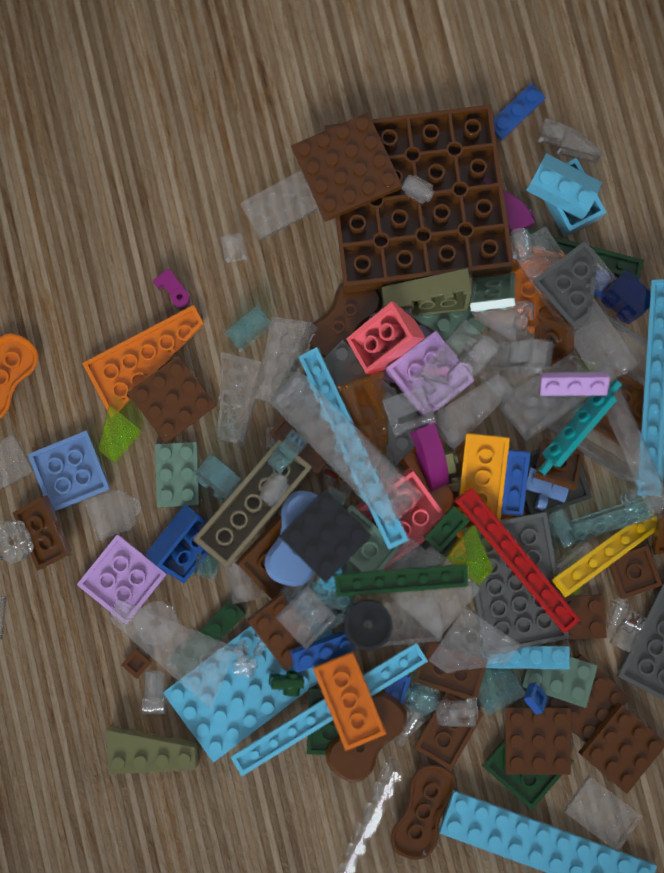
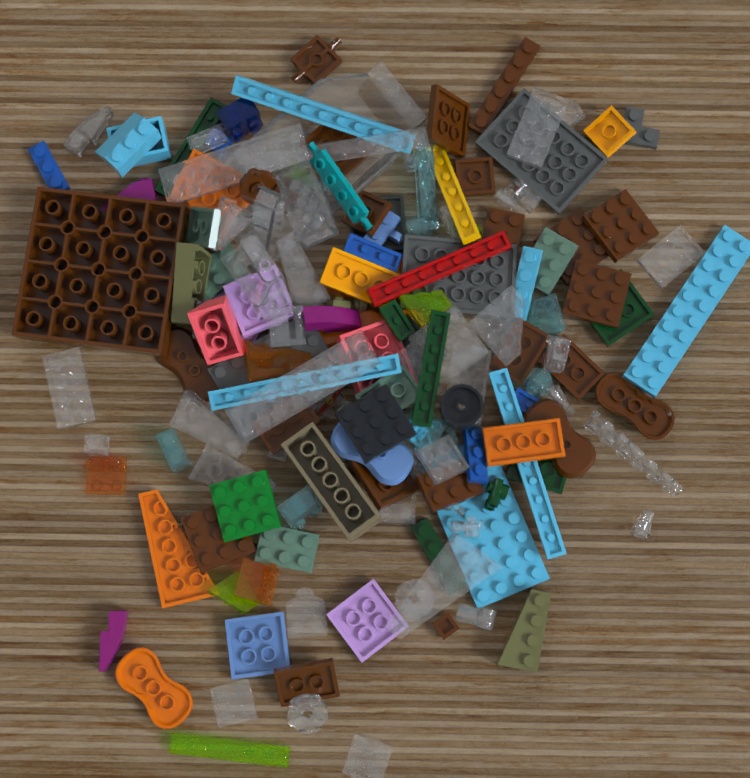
camera: 70 degrees left, 5 degrees down
(40, 320) = (112, 639): none -> magenta slope
(132, 453) = (257, 582): none -> clear orange hinge
(175, 548) = (351, 561): blue slope -> none
(179, 295) = (117, 508): magenta leg -> none
(205, 266) = (106, 475): none -> clear orange hinge
(206, 420) = (245, 505): none -> green plate
(206, 566) = (376, 541): clear light blue plate -> none
(273, 489) = (323, 457): clear brick -> none
(287, 451) = (293, 437): clear light blue leg -> none
(296, 851) = (642, 526): none -> clear cone
(346, 167) = (55, 324): reddish brown plate -> none
(418, 189) = (94, 266): clear brick -> none
(521, 244) = (168, 193): clear brick -> none
(535, 698) = (560, 285): blue plate -> none
(571, 284) = (216, 160): dark grey plate -> none
(574, 384) = (301, 179): lavender plate -> none

